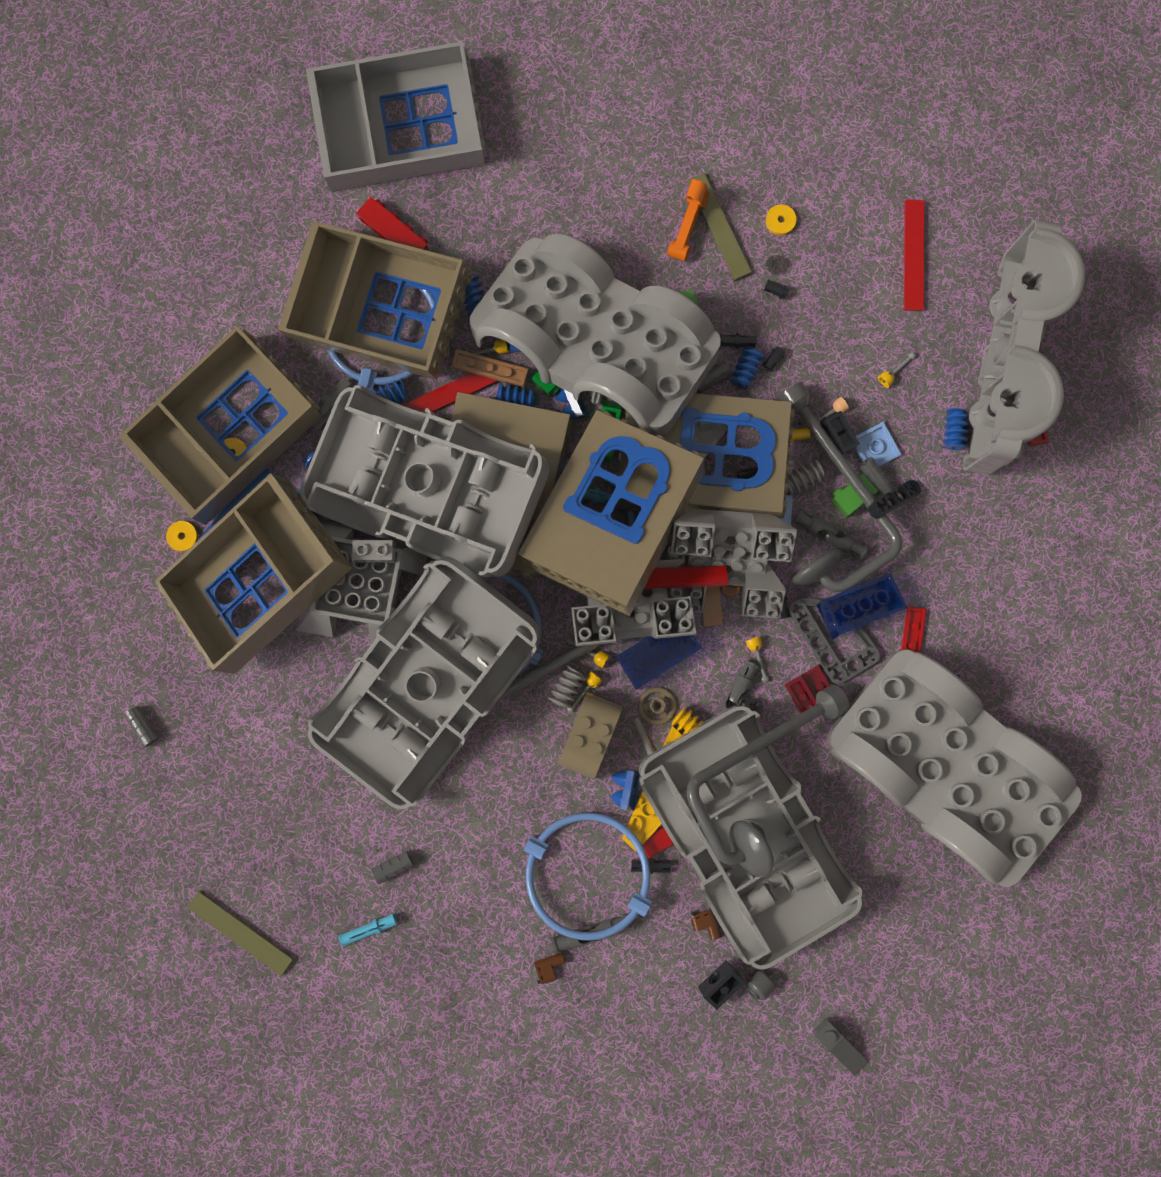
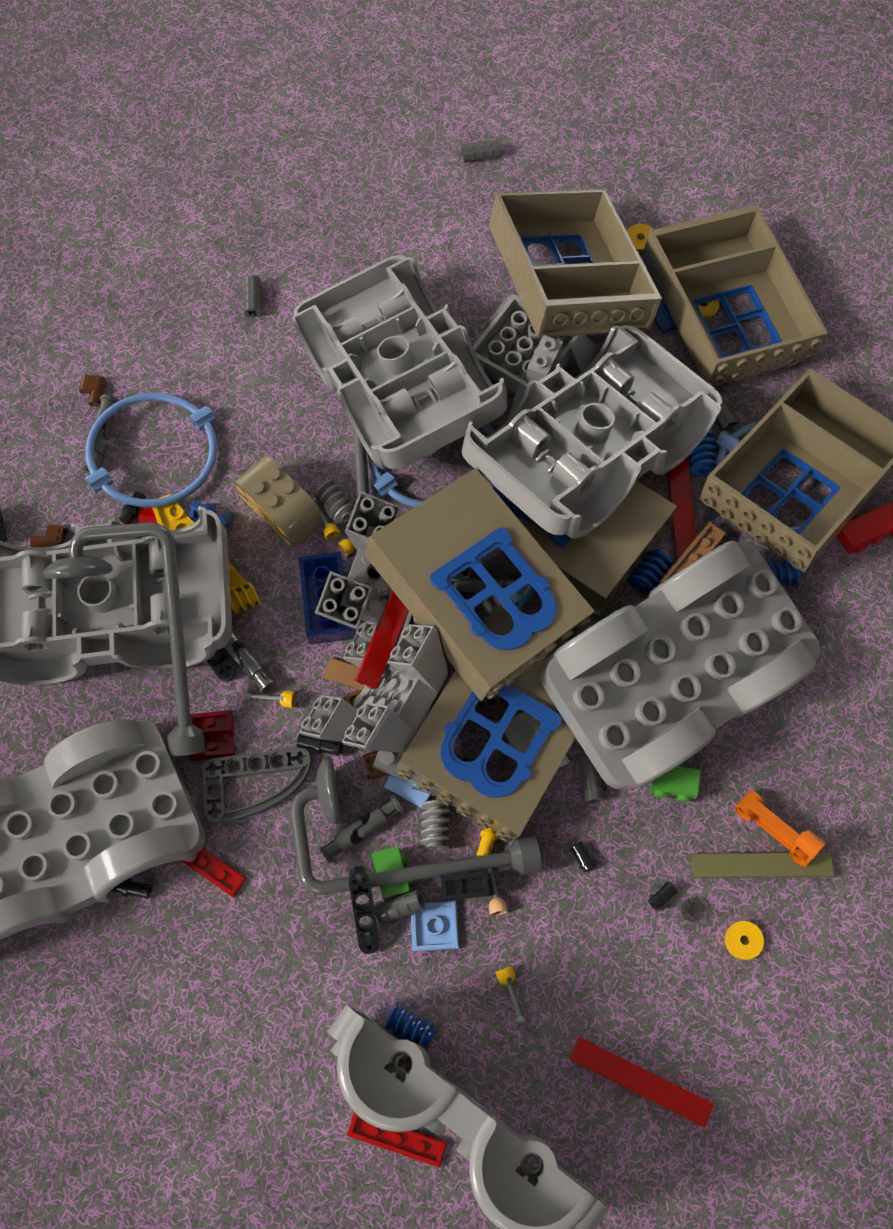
camera: 115 degrees right, 15 degrees down
(240, 933) = (264, 166): olive tile -> none
(375, 926) = (209, 265): medium azure pin -> none
(642, 707) = (275, 570): dark tan piece -> none
(643, 735) = (252, 556): light grey bar -> none
(737, 340) = (620, 825): black pin -> none
(746, 367) = (583, 821): blue piece -> none
(861, 606) = (267, 820): clear blue brick -> none

